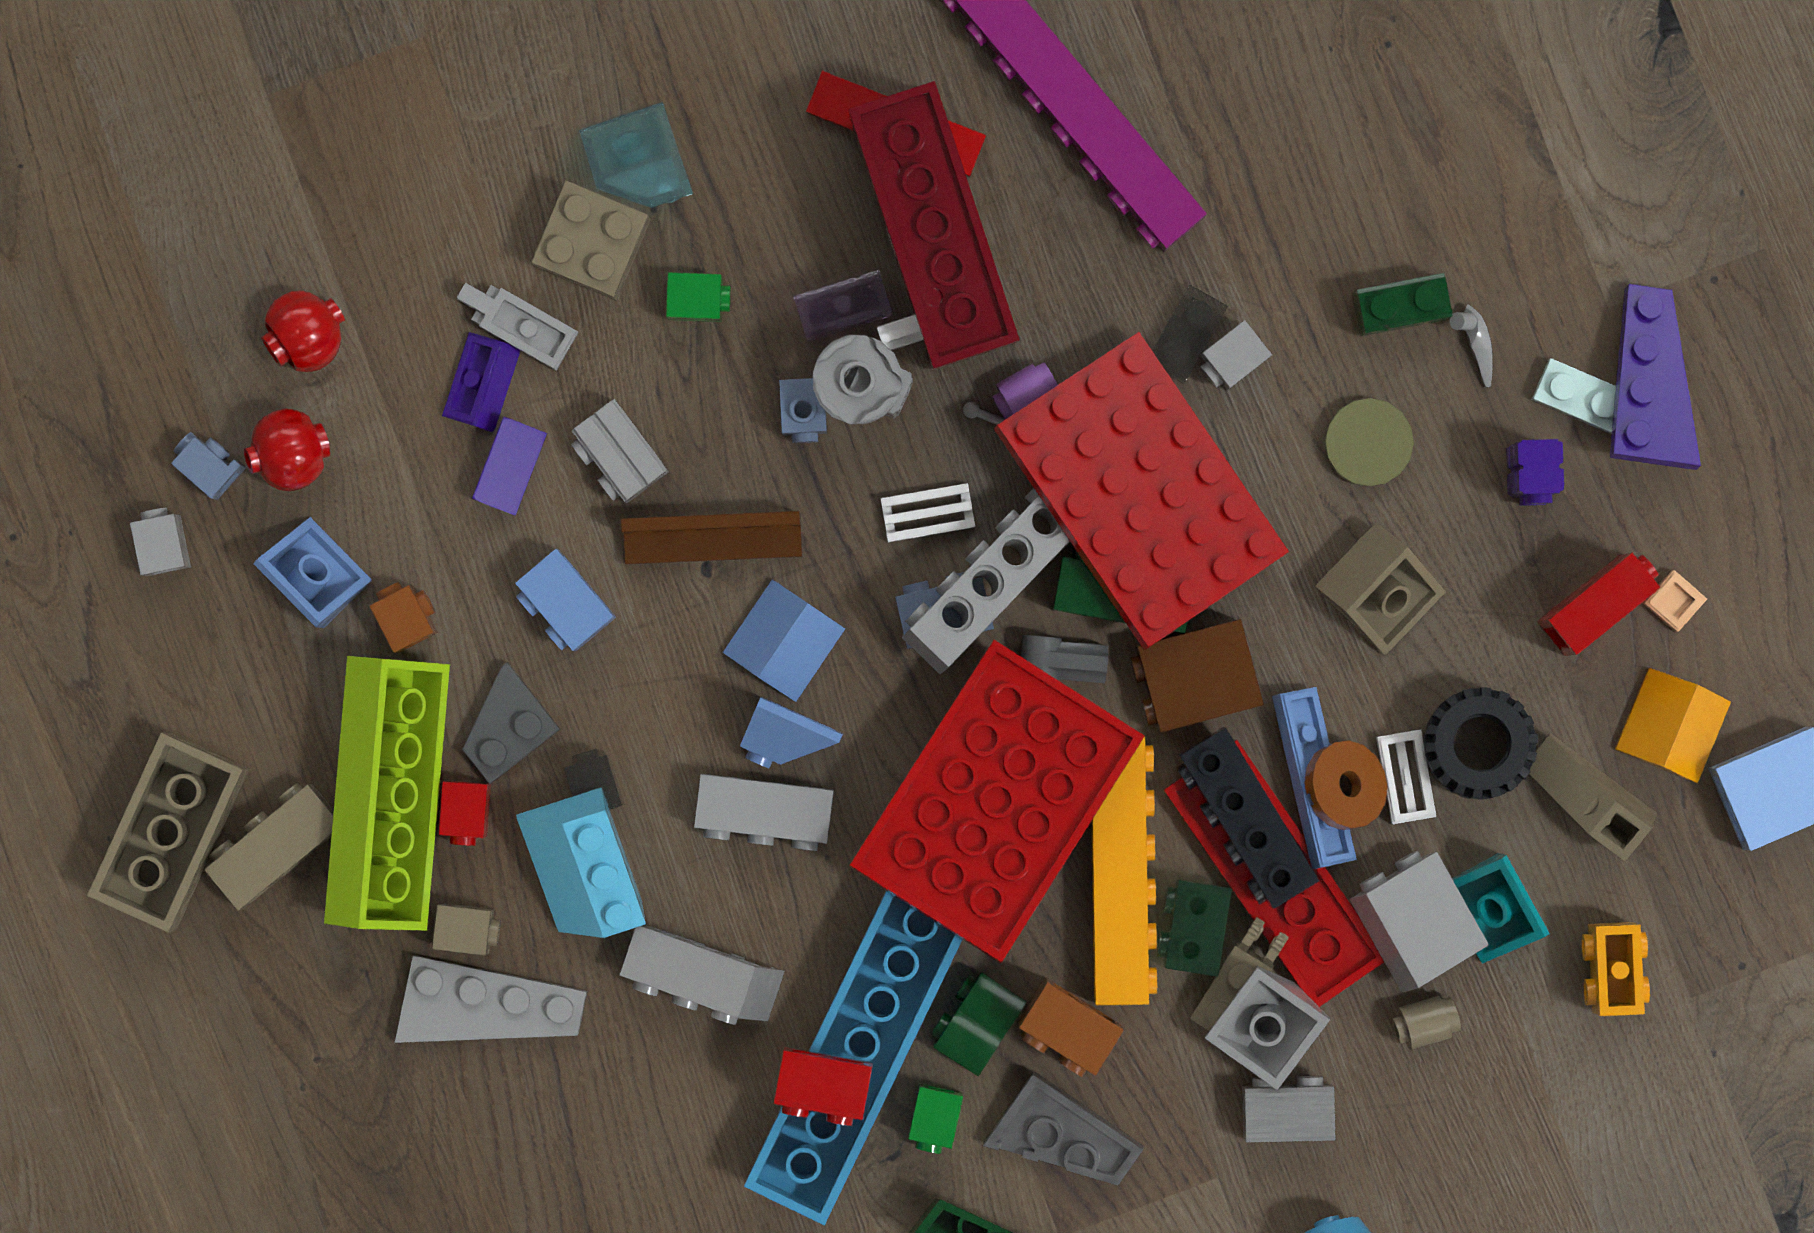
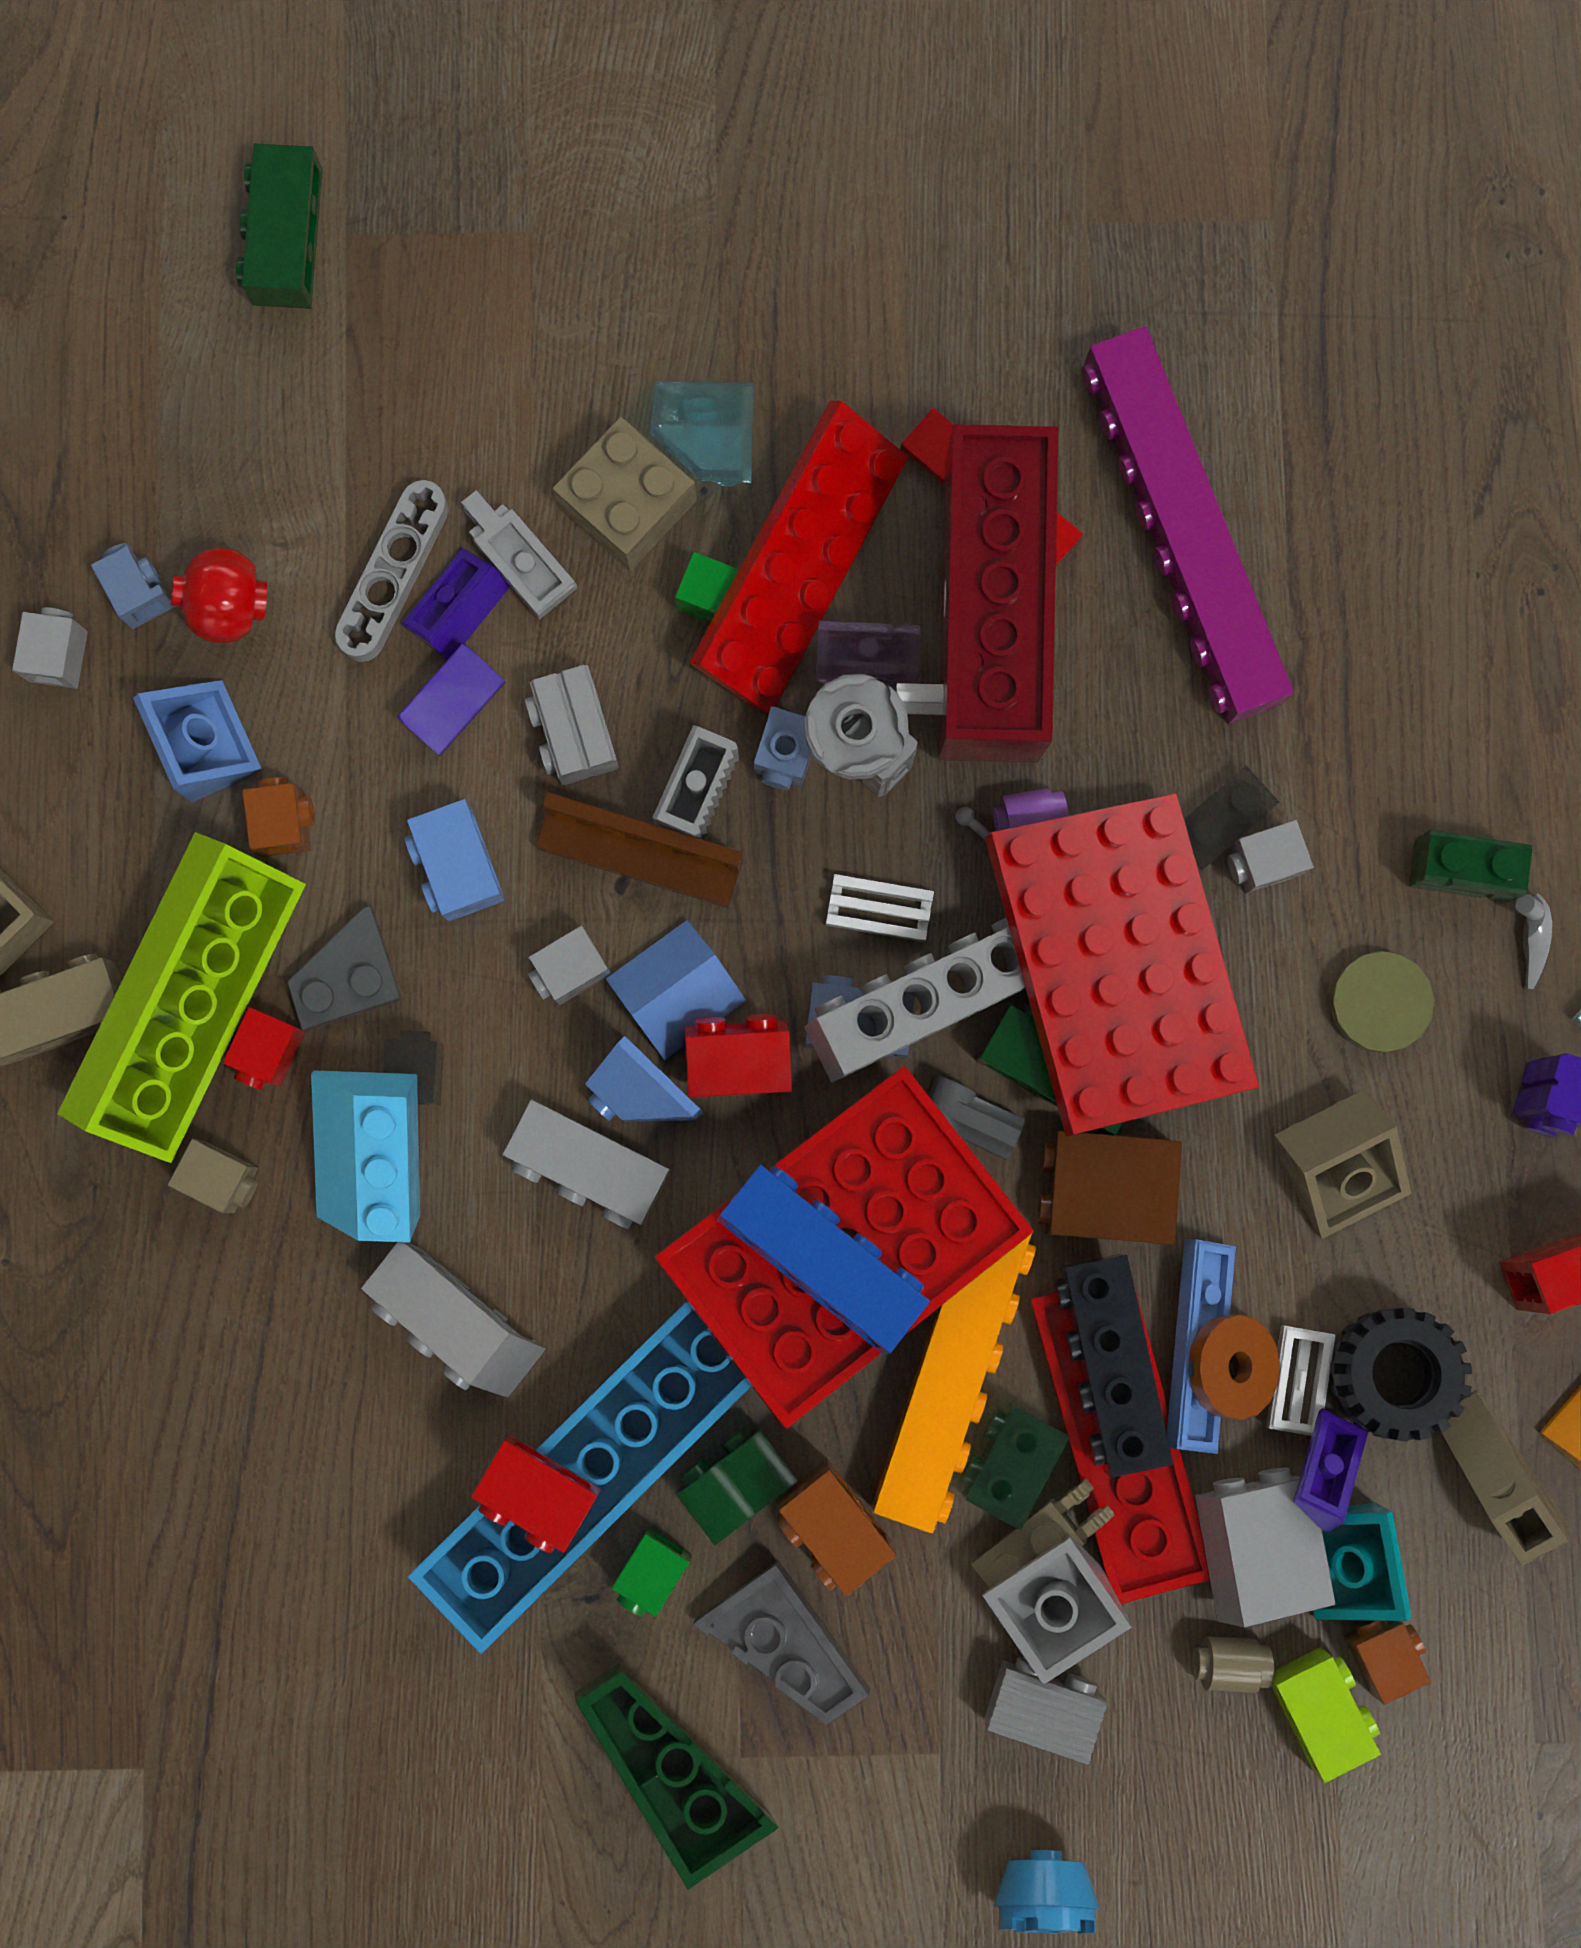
camera: 20 degrees right, 5 degrees down
(212, 112) = (280, 226): none -> dark green brick
(303, 331) = (287, 481): red plant -> none
(424, 374) = (384, 568): none -> light grey beam
(474, 1003) = (197, 1263): light grey wing -> none
(689, 654) = (567, 967): none -> light grey brick
(740, 467) = (696, 783): none -> light grey brick
(757, 244) = (799, 558): none -> red plate
(855, 678) = (738, 1056): none -> red brick
(983, 819) = (823, 1259): none -> blue brick
(1448, 840) = (1330, 1470): none -> dark purple slope
(1512, 1034) = (1324, 1714): none -> lime brick
(1547, 971) = (1388, 1658): none -> dark orange brick
(1615, 968) = (1467, 1683): light orange brick -> none

